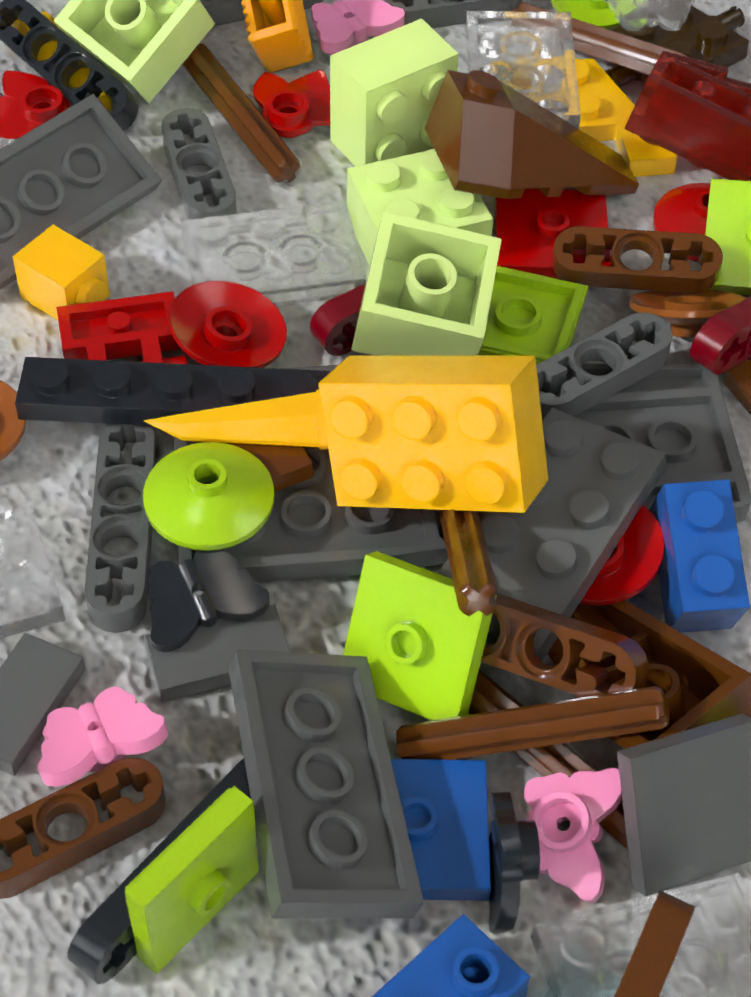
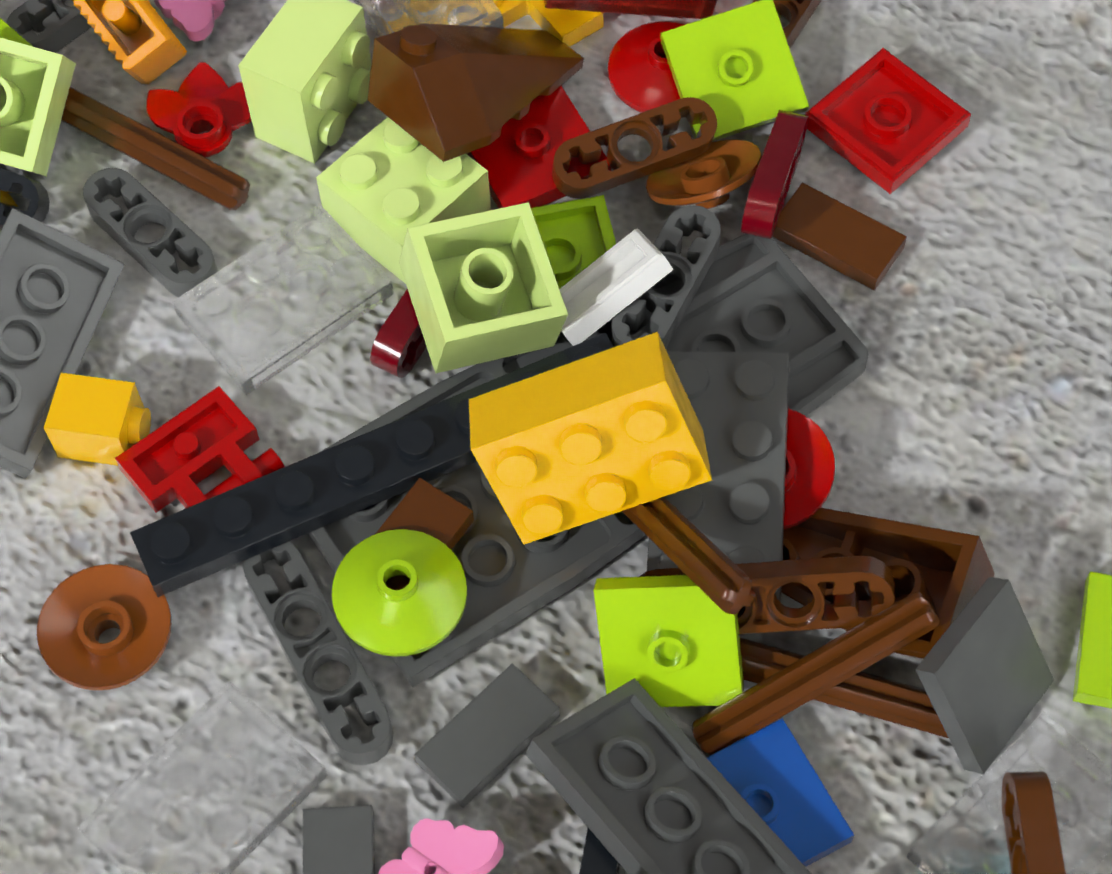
camera: 25 degrees left, 10 degrees up
(226, 594) = (434, 717): black animal -> none
(227, 325) = (297, 380): red dish -> none
(275, 422) = (426, 481): yellow bar -> none
(513, 858) = (862, 800): black animal -> none
(548, 339) = (611, 285): none -> white tile
(585, 802) = (900, 767): bright pink animal -> none
(702, 559) = (866, 432): blue brick -> none

